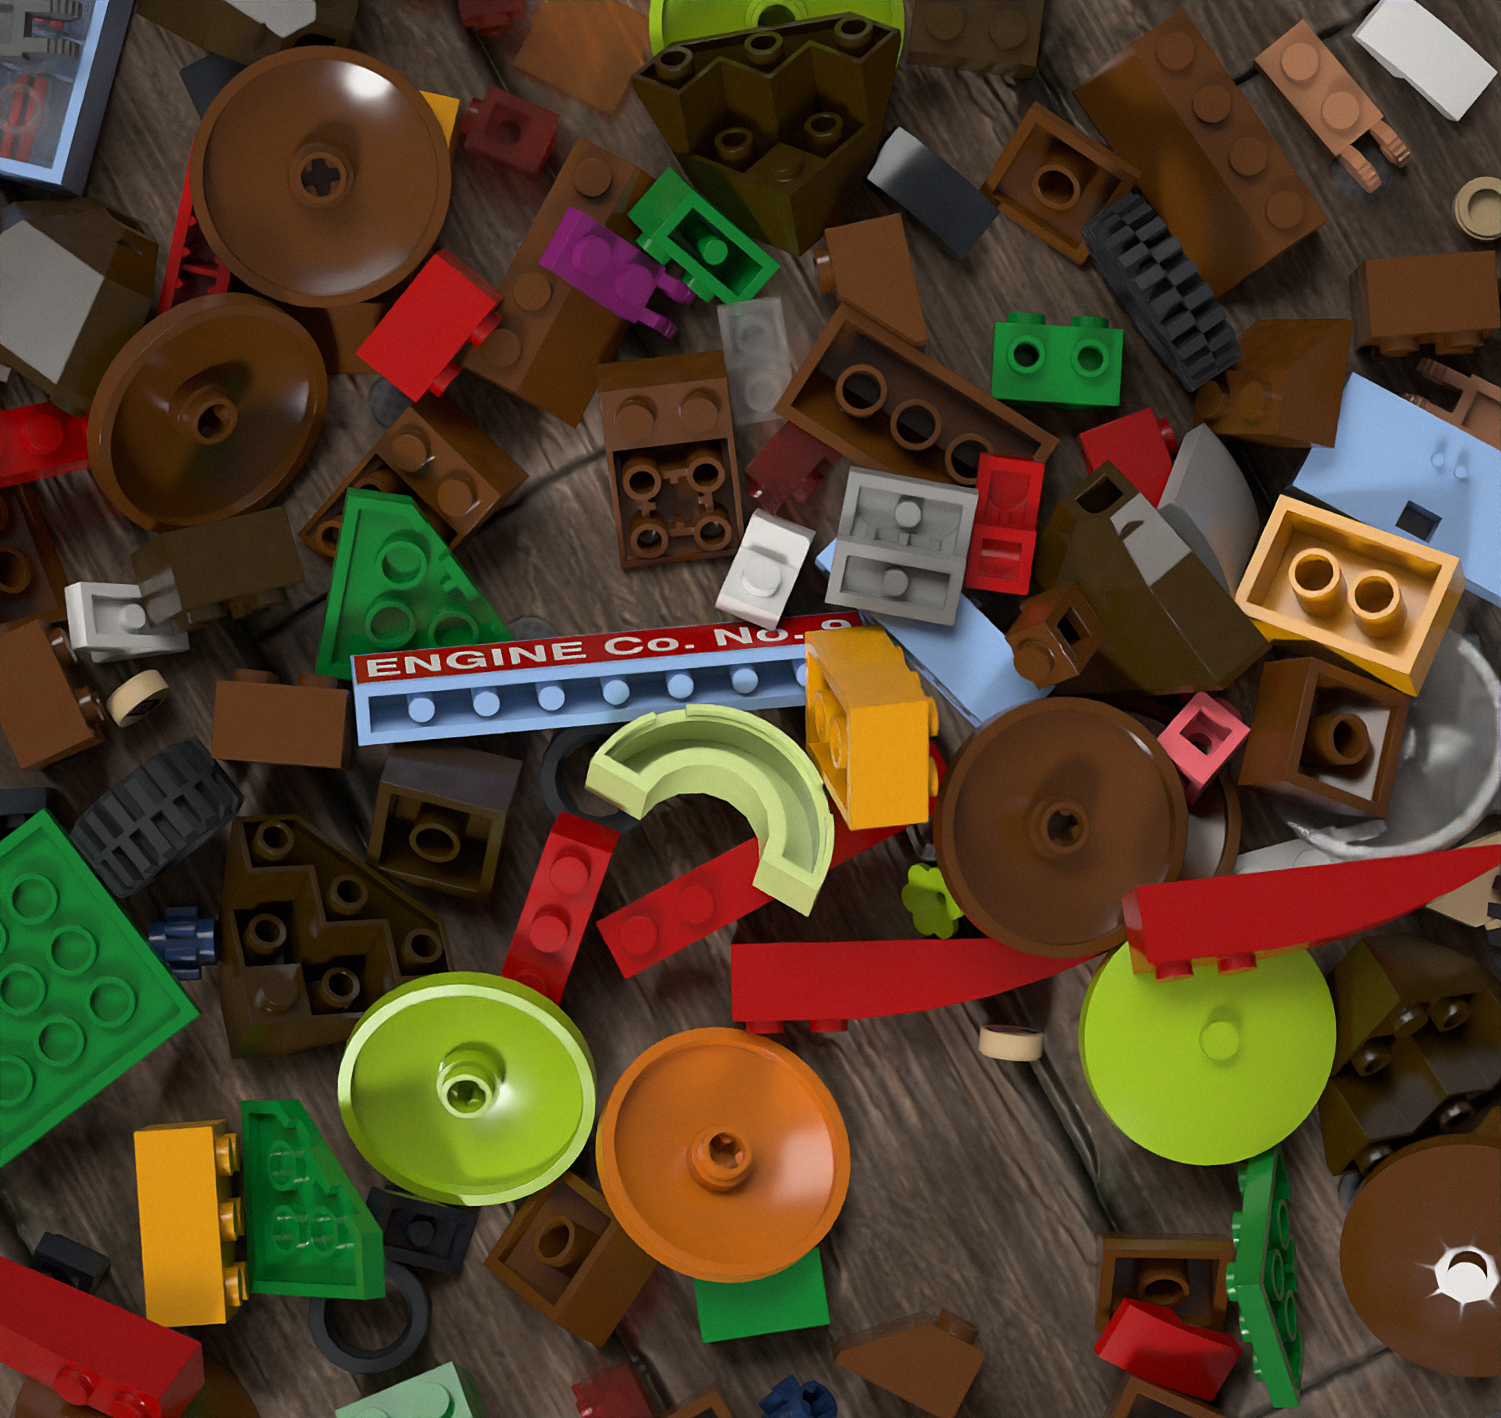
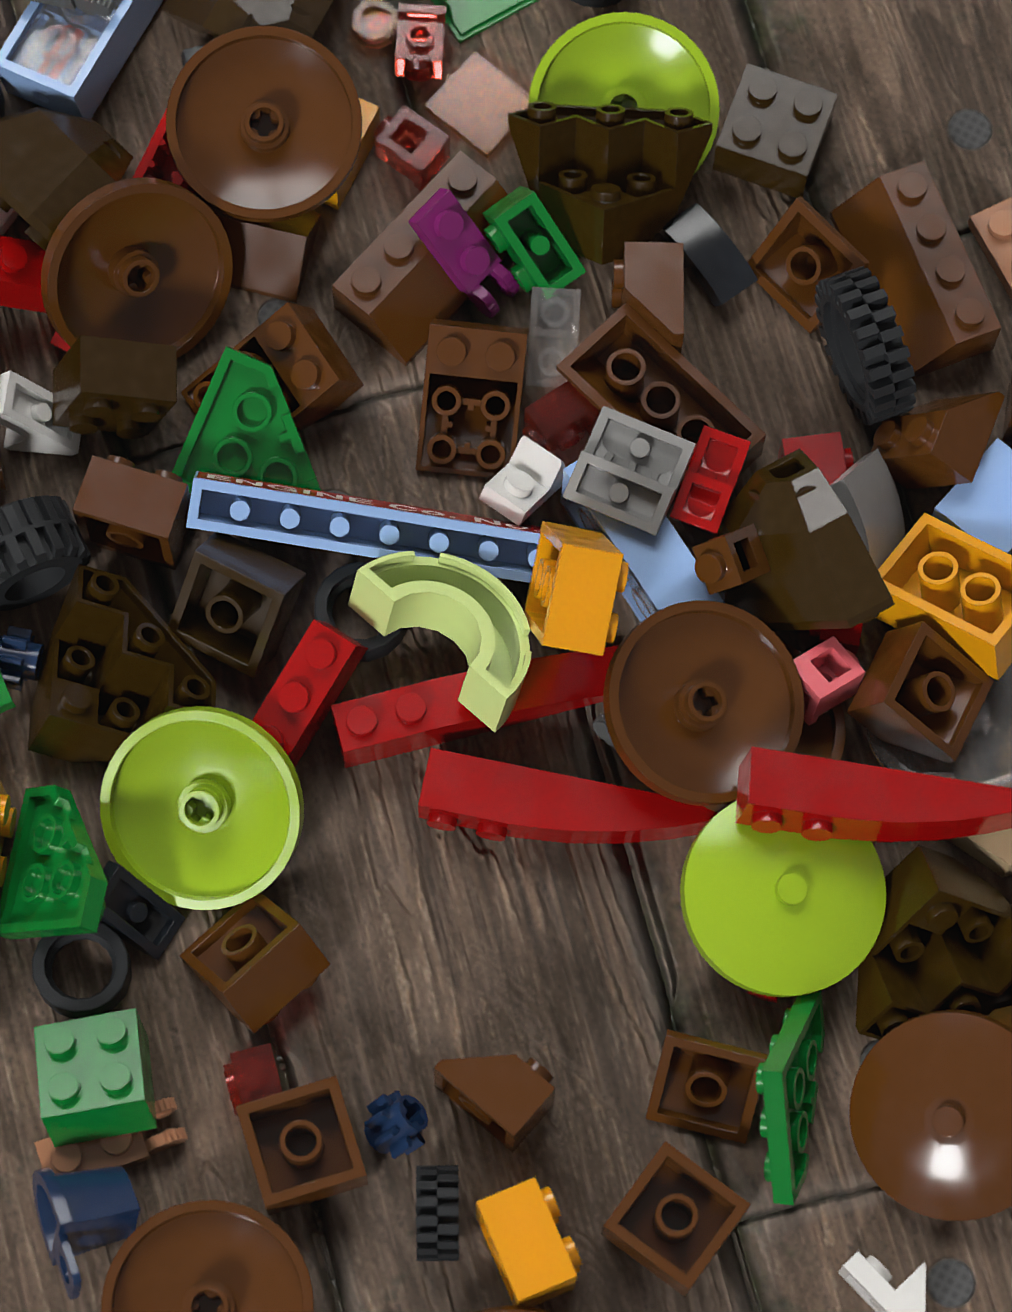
camera: 15 degrees right, 15 degrees down
(137, 697) = (30, 476): tan tile -> none
(432, 326) = (318, 248): red brick -> none
(723, 1155) = (385, 903): orange dish -> none
(766, 1305) = (389, 1019): green brick -> none
(930, 902) = (594, 755): lime plant -> none
(1011, 1042) = (629, 877): tan tile -> none
(1056, 364) = (777, 392): green brick -> none
(1166, 1351) = (699, 1135): red slope -> none

